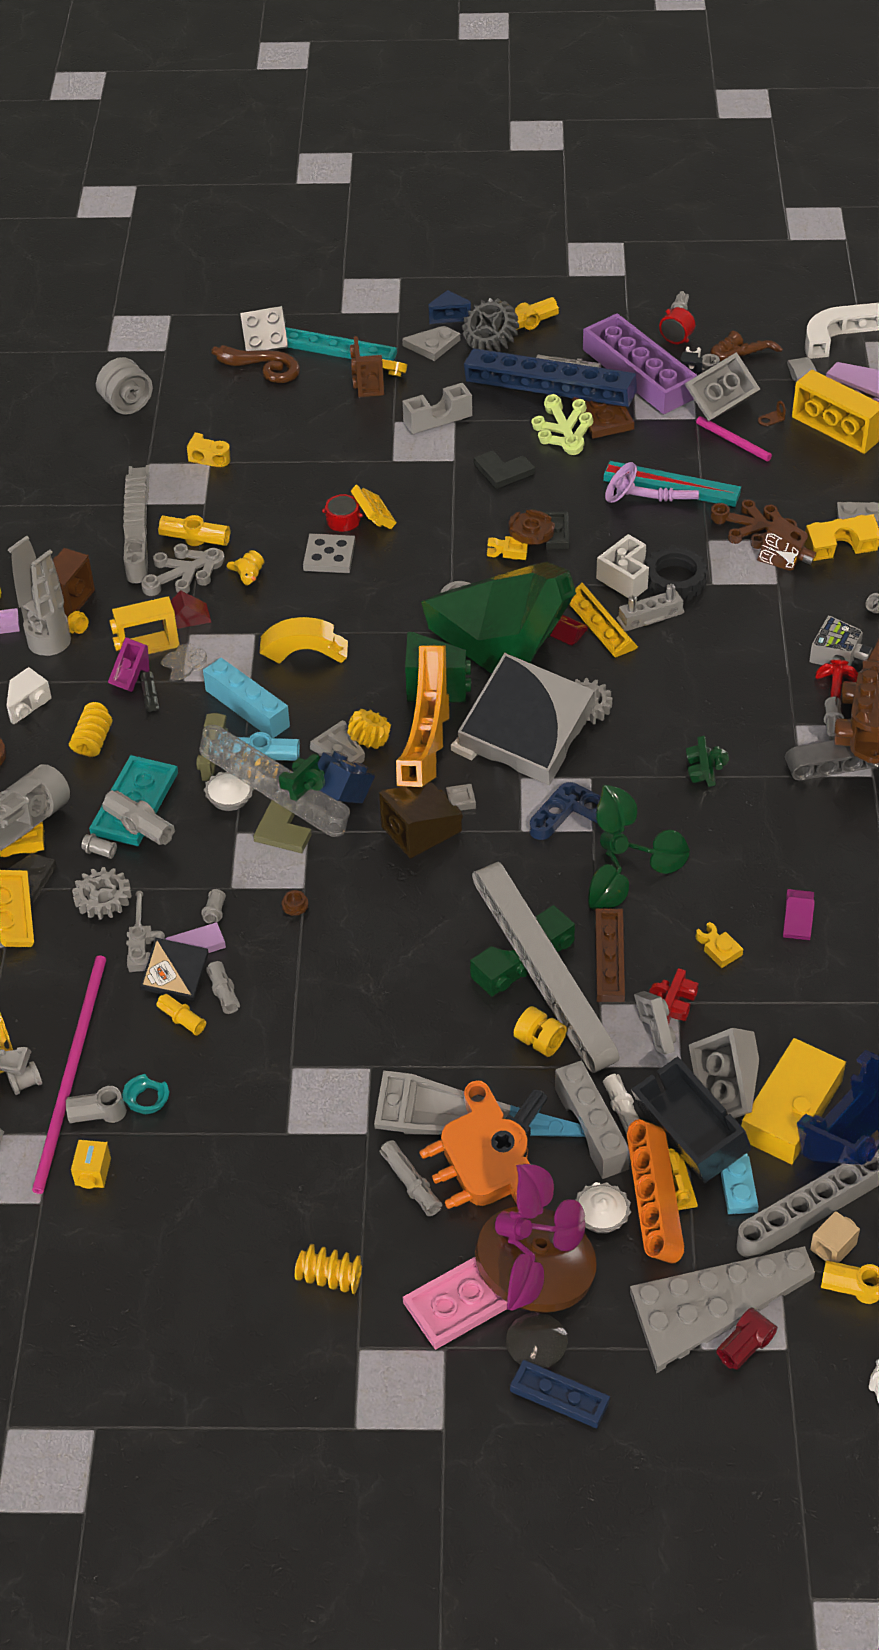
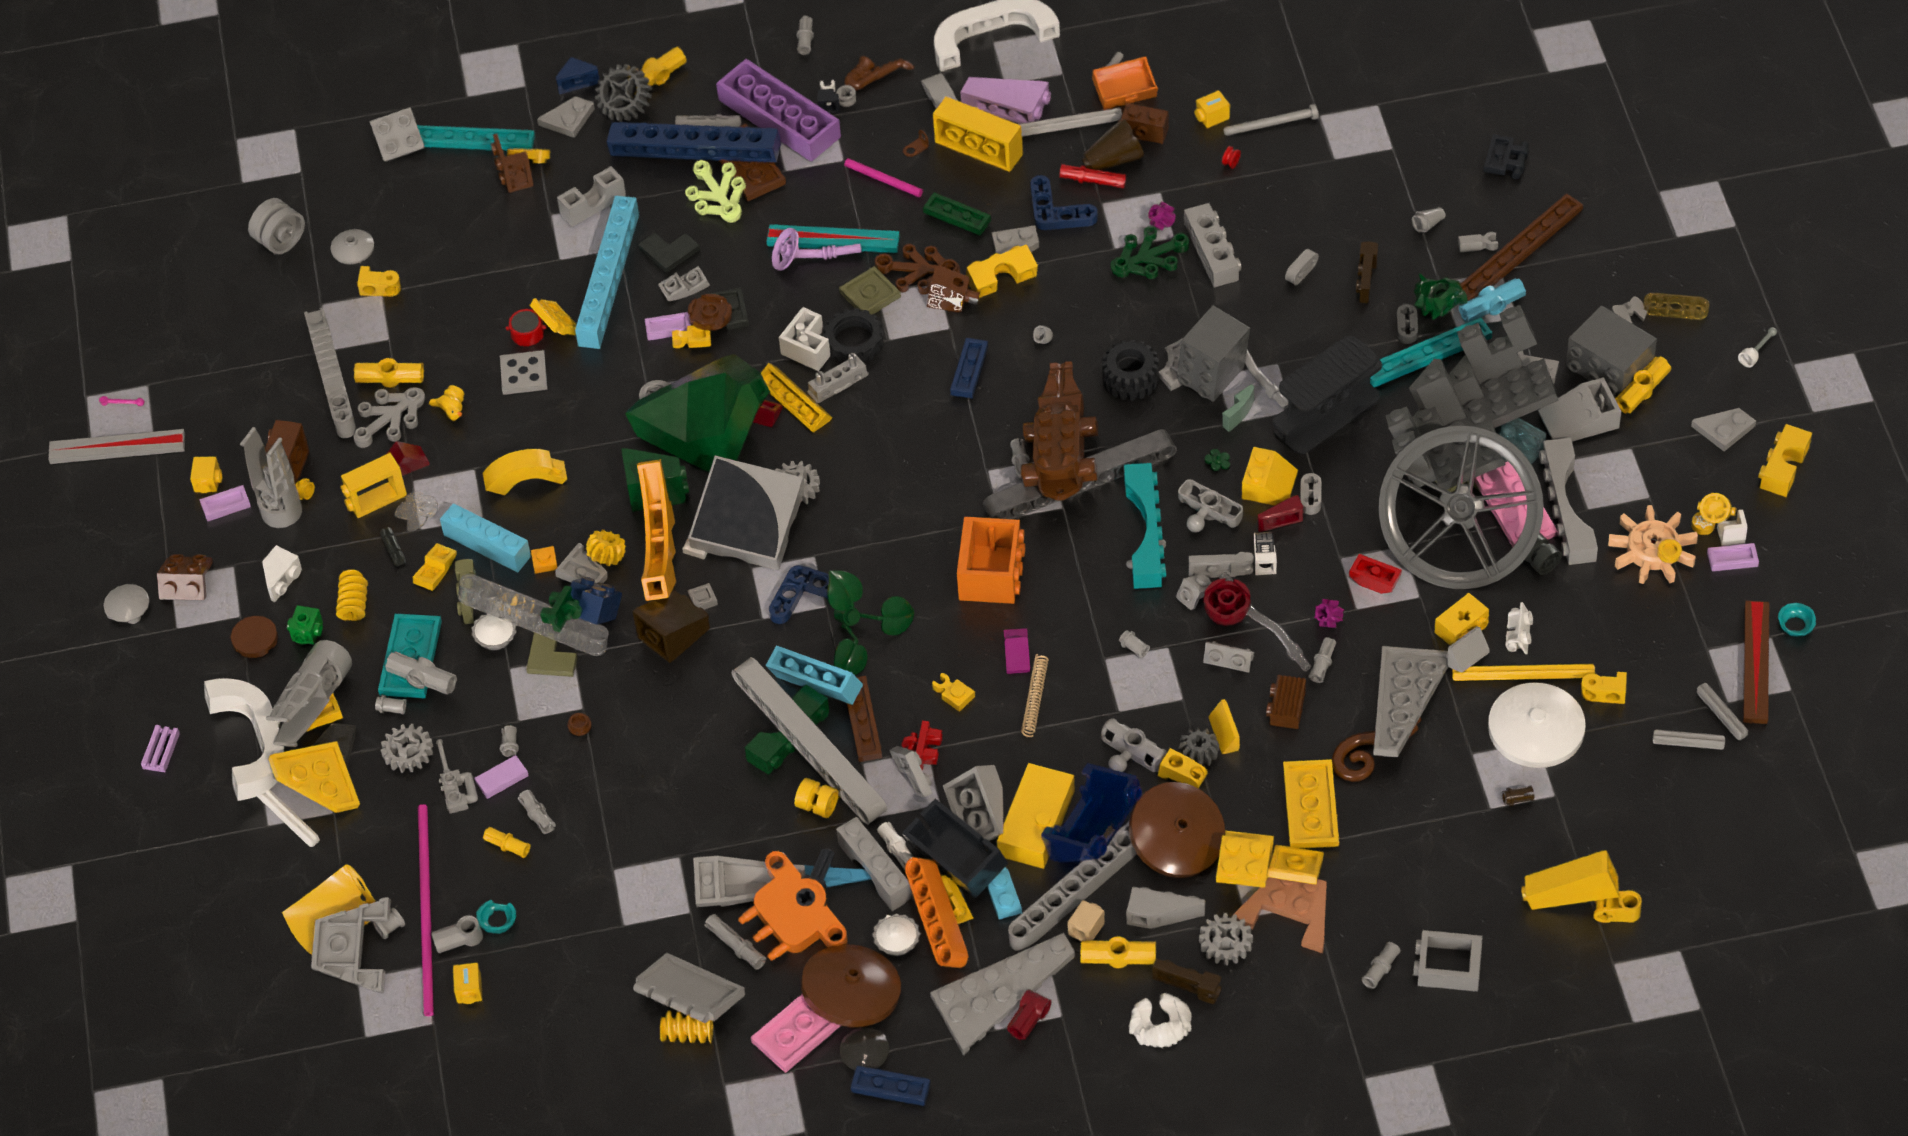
camera: 10 degrees left, 5 degrees up
(34, 749) = (305, 625): none -> green brick
(130, 661) = (368, 523): magenta slope -> none
(174, 969) = (490, 804): tile -> none
(189, 717) = (436, 566): none -> yellow slope
(194, 419) = (352, 246): none -> light grey dish
(274, 747) = (522, 582): medium azure piece -> none
(277, 358) = (379, 169): reddish brown plant -> none
(303, 730) = (544, 559): none -> light orange plate
(342, 1222) = (688, 988): none -> light grey hinge
(435, 477) = (607, 272): none -> medium azure brick
(479, 533) = (663, 326): none -> lavender tile
(516, 501) = (686, 285): none -> light grey slope
(533, 1193) = (840, 935): magenta plant -> none
(570, 897) = (814, 673): none -> medium azure brick
(677, 325) = (807, 59): piece -> none
(701, 535) = (870, 291): none -> olive tile
(708, 760) = (915, 520): dark green hips -> none
(722, 387) = (863, 127): light grey slope -> none
(785, 812) = (990, 560): none -> orange container
(792, 622) = (969, 368): none -> dark blue plate
(804, 480) = (957, 213): none -> dark green plate
(811, 952) = (1035, 703): none -> tan piece
(838, 641) = (1014, 384): torso -> none
(839, 669) = (1017, 409): red plant -> none

